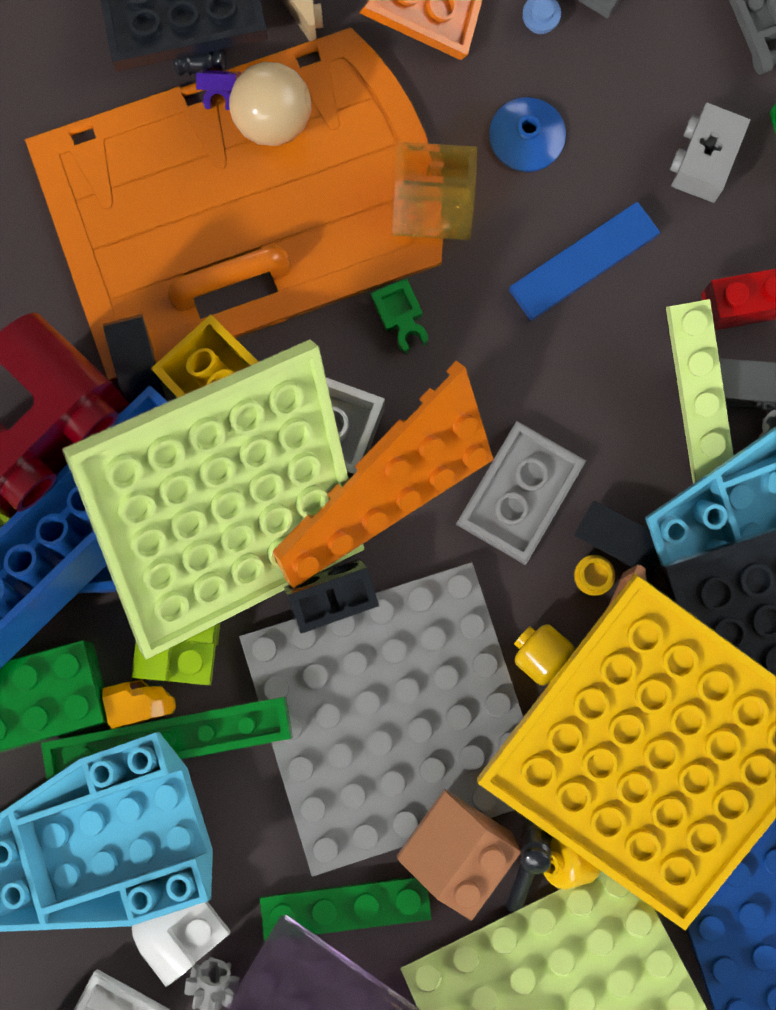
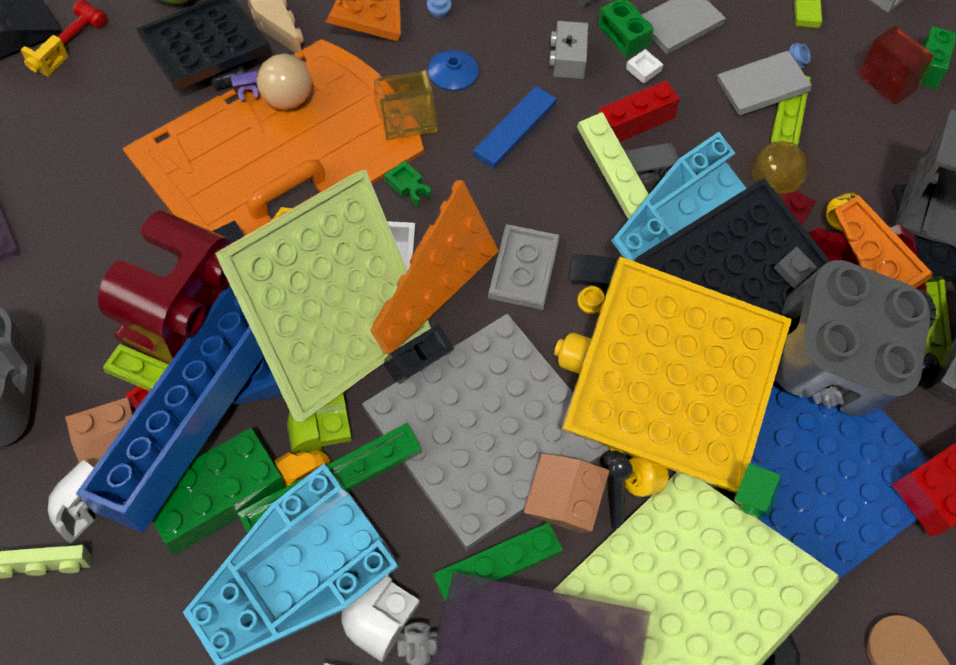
camera: 20 degrees left, 20 degrees down
(704, 948) = (758, 491): none -> green brick

